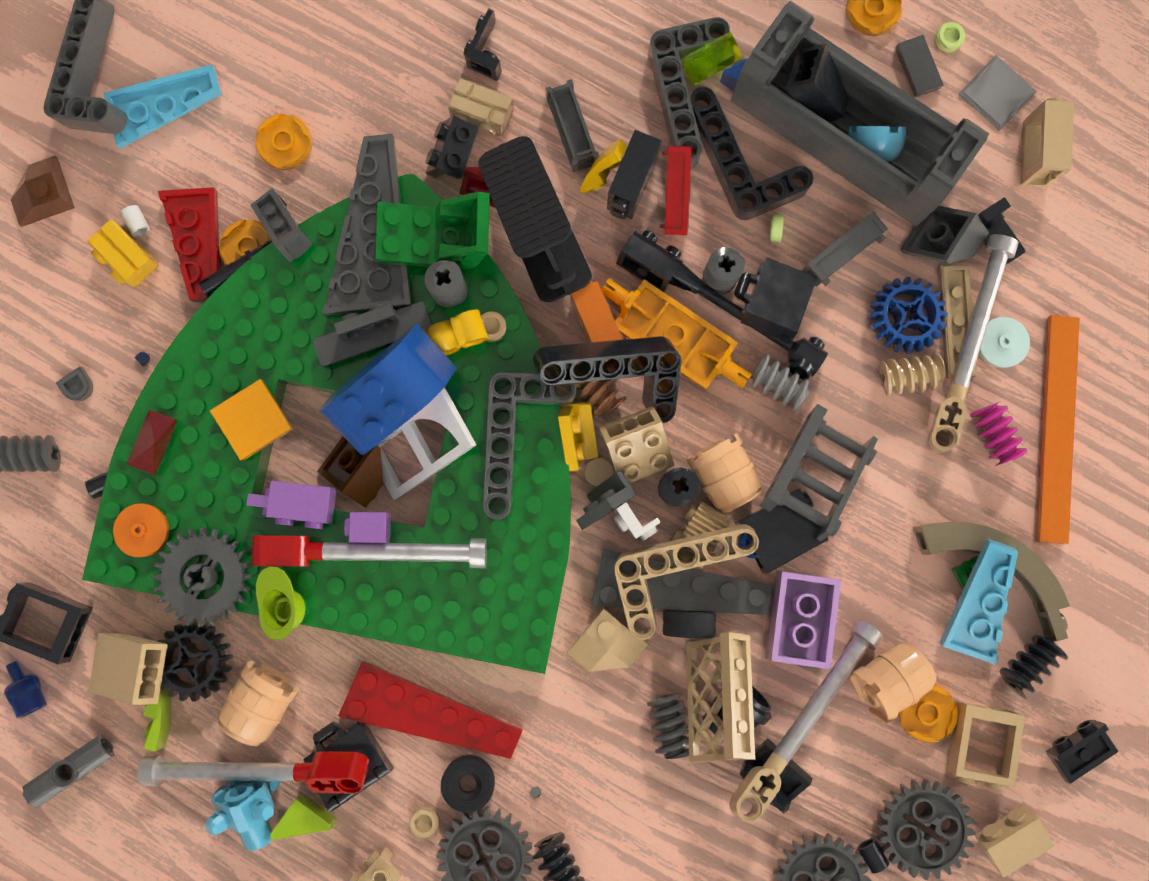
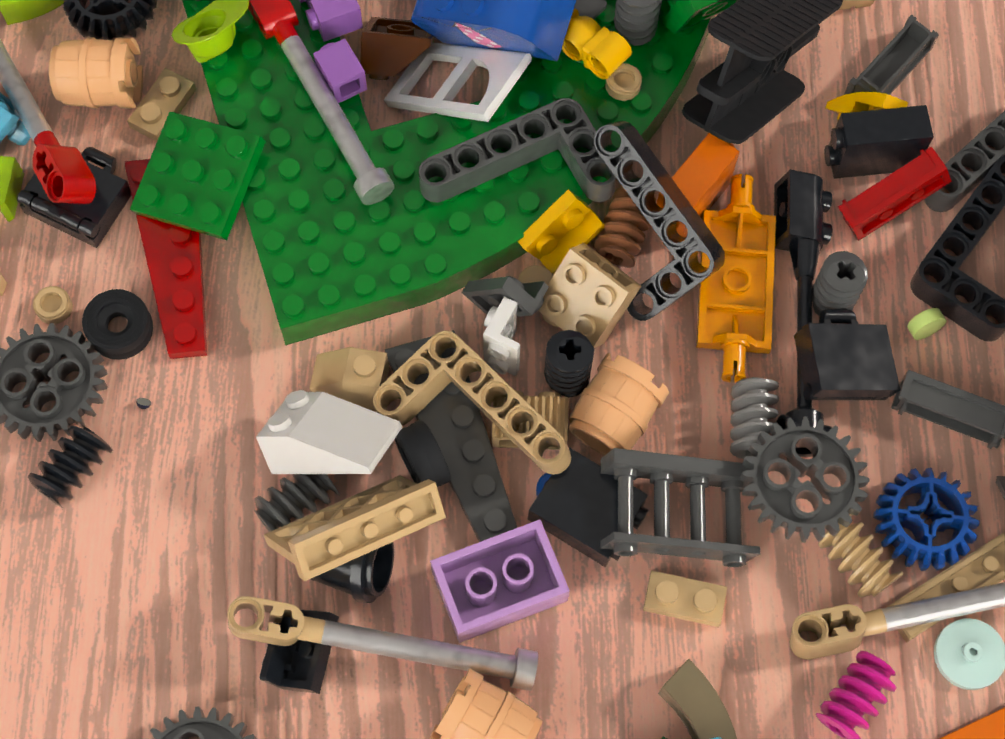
camera: 60 degrees right, 15 degrees down
(303, 664) = (167, 94): none -> tan plate
(389, 672) = (198, 175): none -> green plate
(646, 684) = (325, 436): none -> white slope
(843, 356) = (779, 500): none -> dark grey gear
(872, 501) = (685, 598): none -> tan plate

